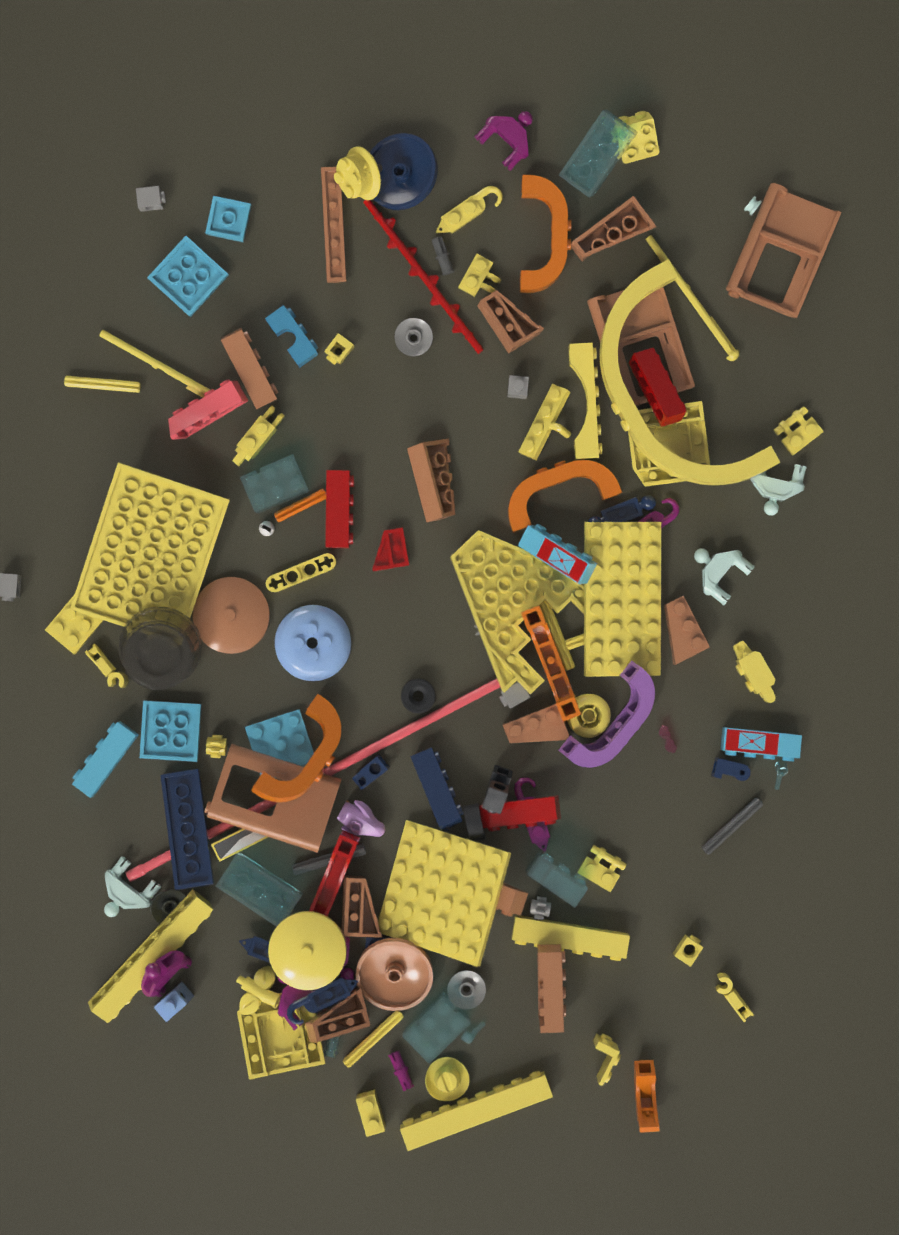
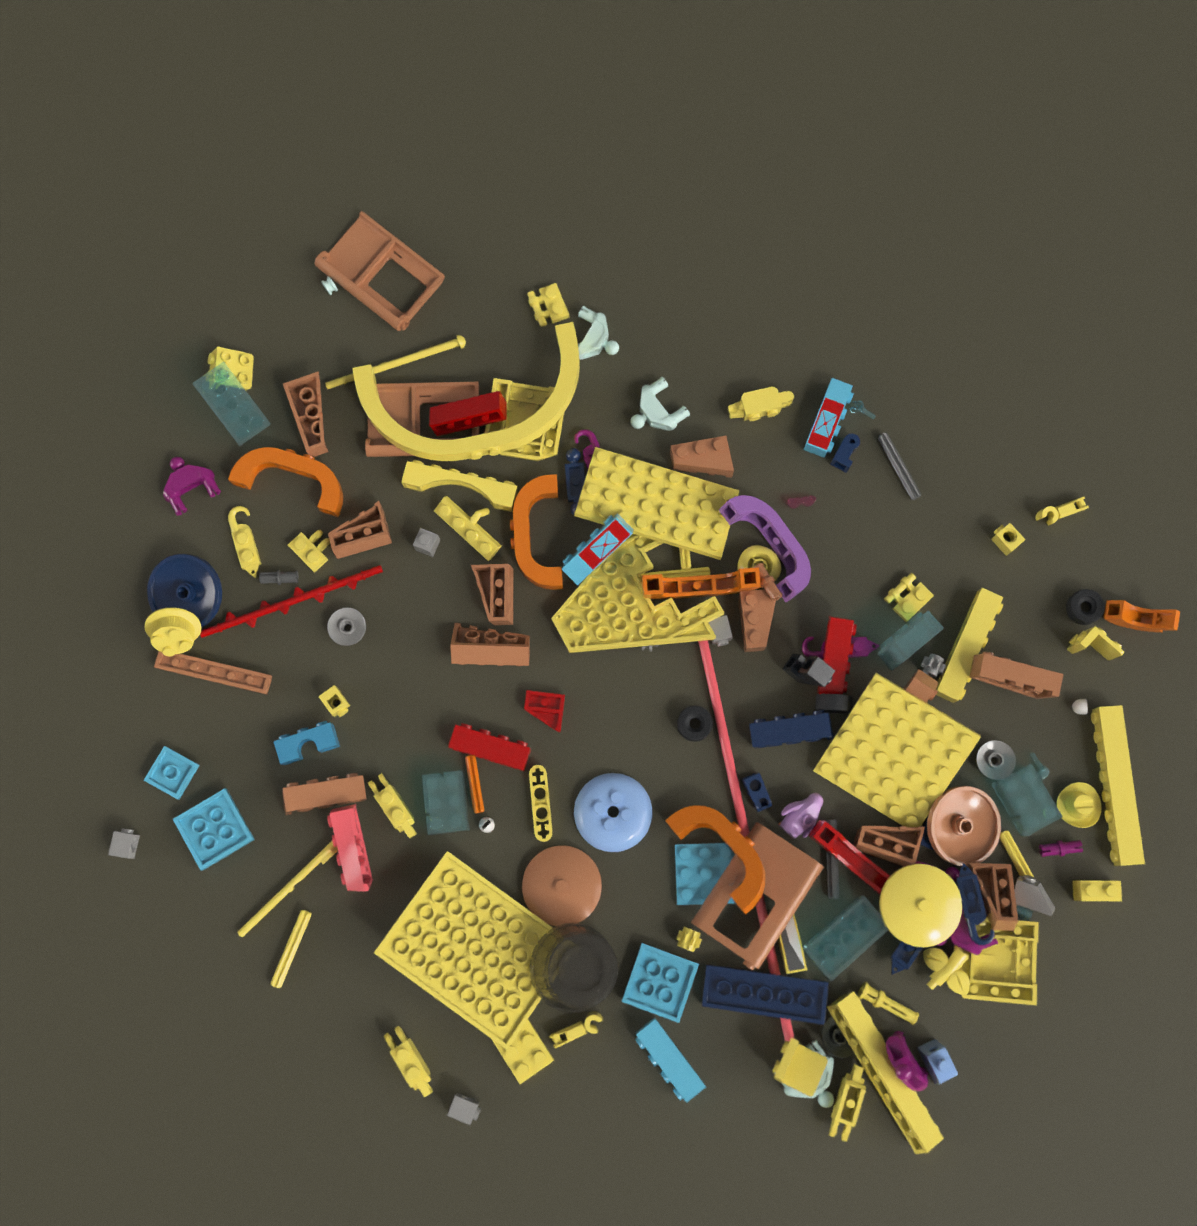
camera: 70 degrees left, 10 degrees down
(34, 525) = (410, 1062): none -> light yellow hinge
(115, 930) = (848, 1102): none -> light yellow hinge
(131, 877) = (800, 1067): none -> light yellow bracket
(213, 934) = (879, 999): none -> light yellow pin
(348, 1053) = (1032, 895): none -> light grey slope
(488, 470) = (496, 589): none -> nougat wedge
(542, 1058) = (1080, 706): none -> white hinge
(572, 727) = (768, 584): none -> nougat pin
(649, 1049) = (1093, 599): none -> black tyre

